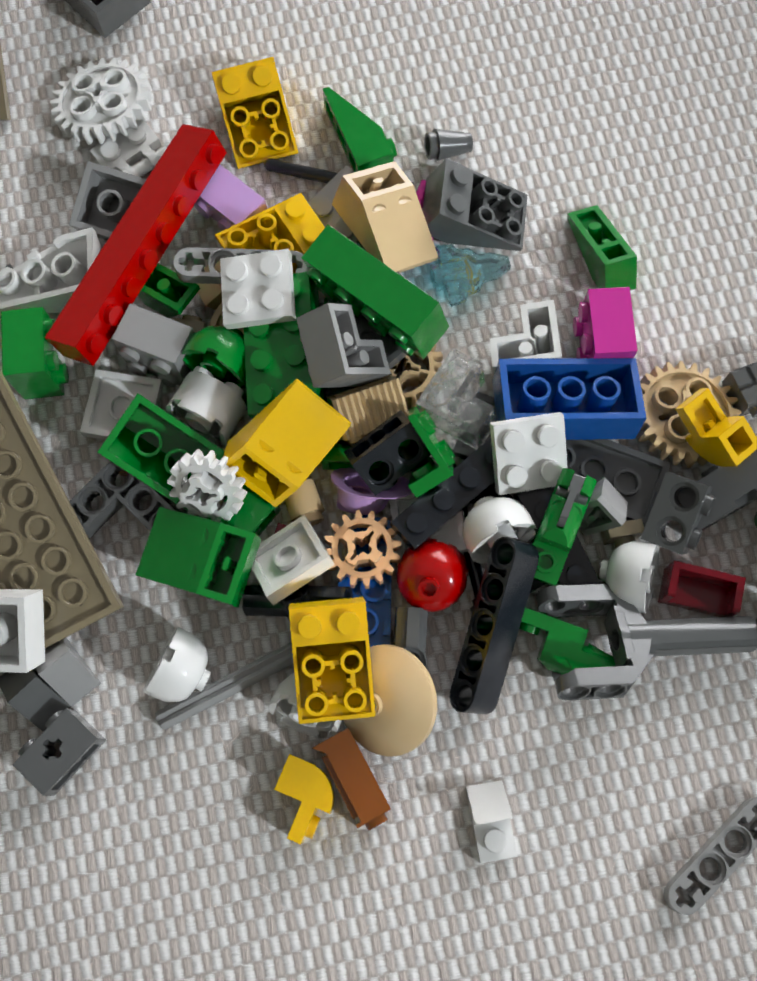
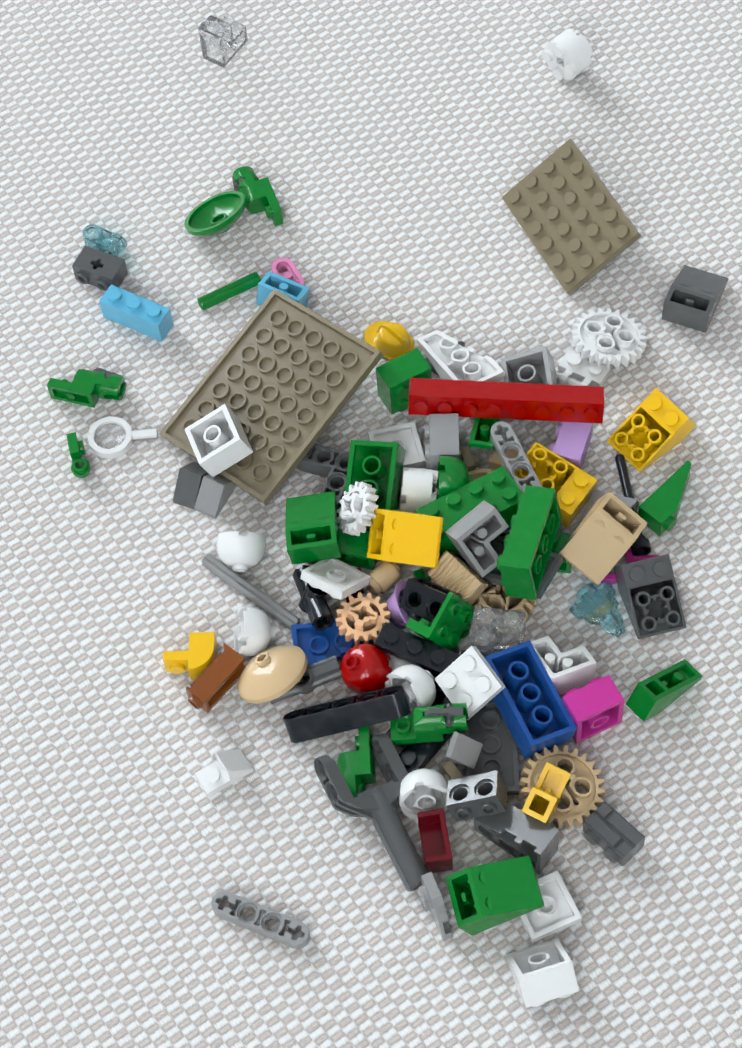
camera: 70 degrees right, 15 degrees down
(52, 772) = (164, 512): dark grey brick -> none
(257, 289) = (497, 474): white plate -> none
(331, 660) = (279, 620): yellow slope -> none
(446, 144) = (695, 558): dark grey cone -> none

